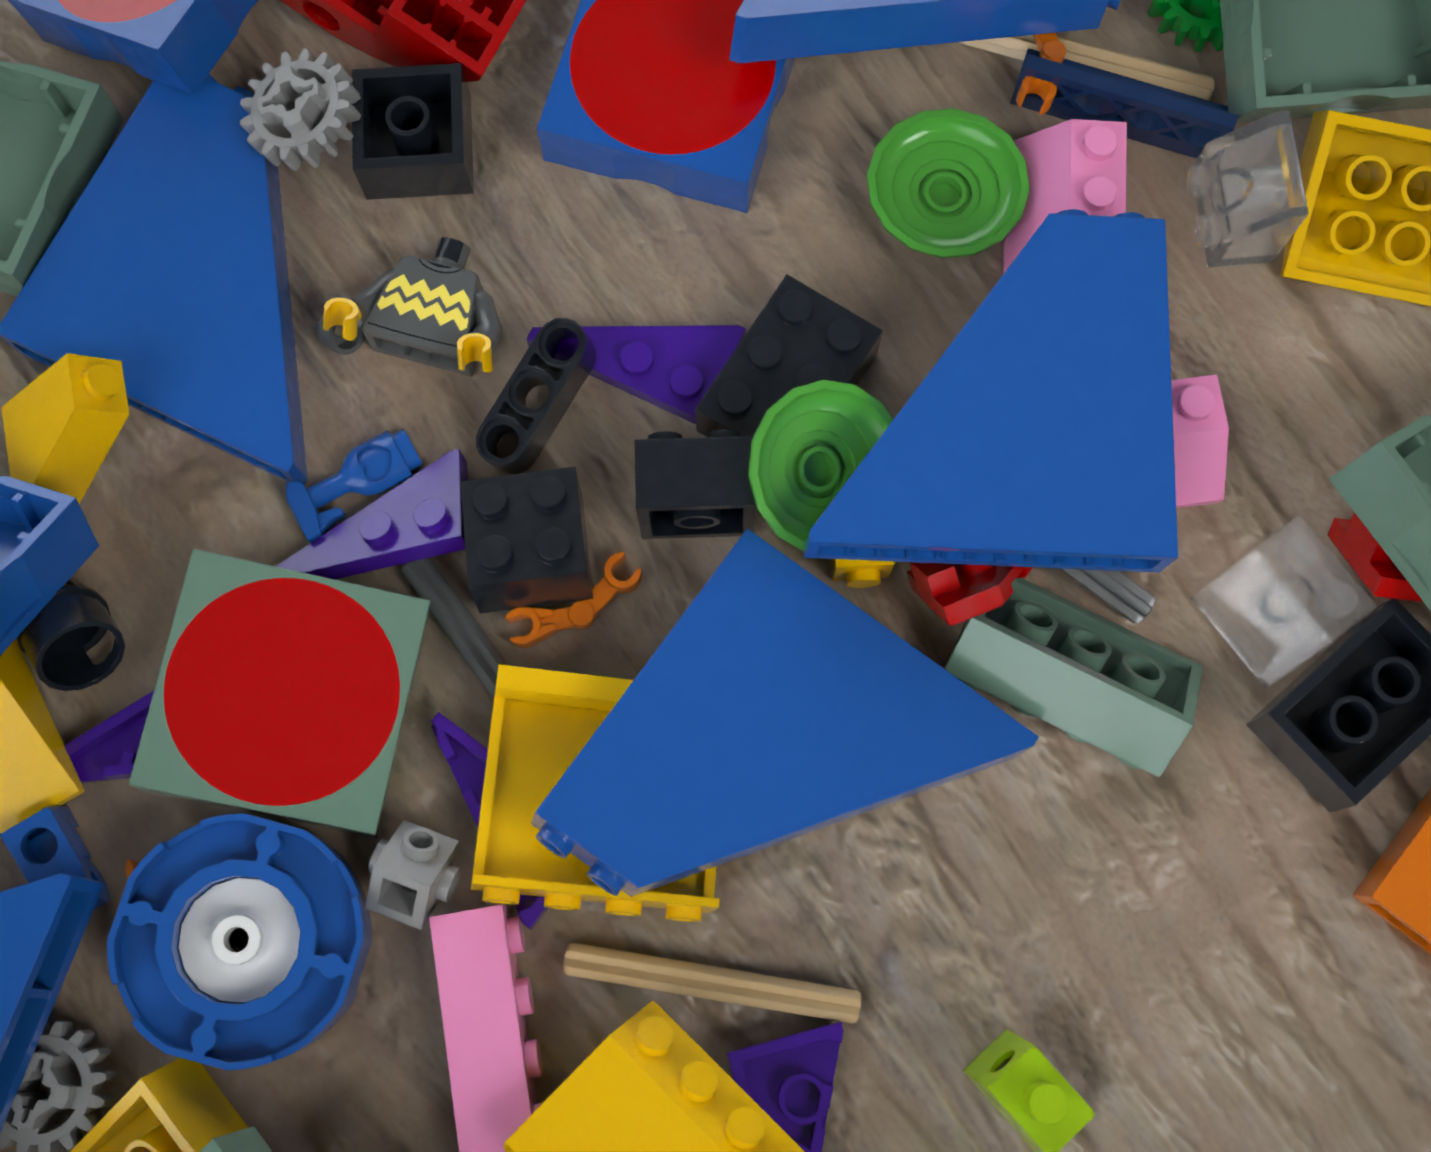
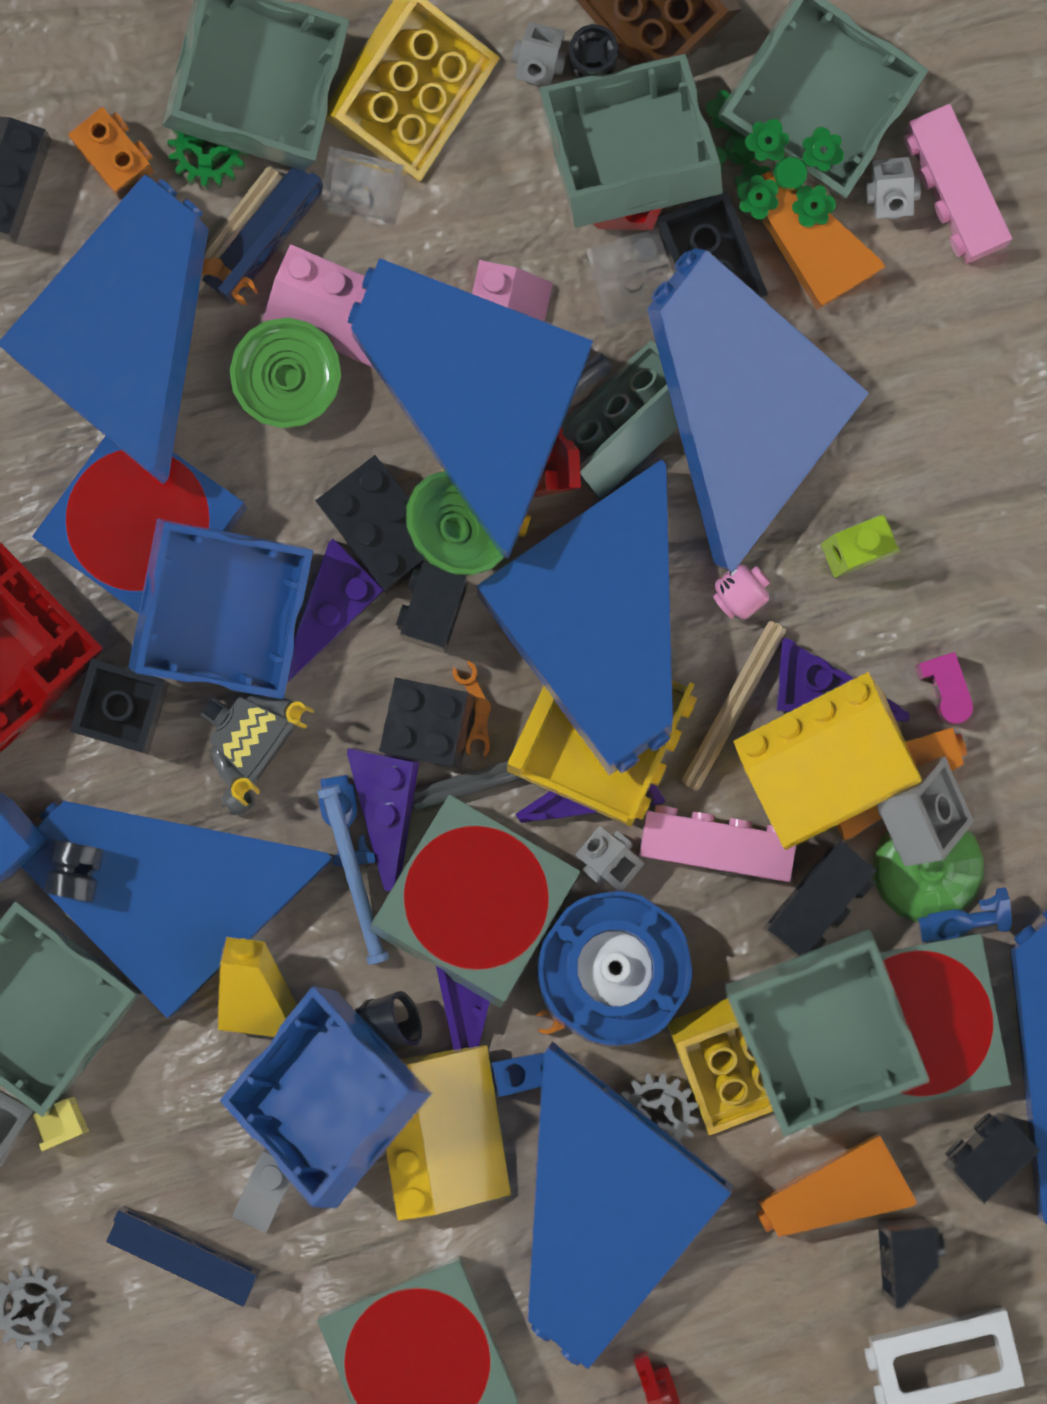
camera: 70 degrees left, 10 degrees up
(137, 139) = (81, 883): none -> black wheel
(294, 501) = (352, 873): none -> medium blue bar
(300, 109) = (71, 772): light grey gear -> none
(535, 369) = (344, 703): black beam -> none
(586, 197) = (220, 608): none -> blue tile
(888, 932) = (742, 591): none -> bright pink head
(1190, 827) = (746, 398): none -> slope

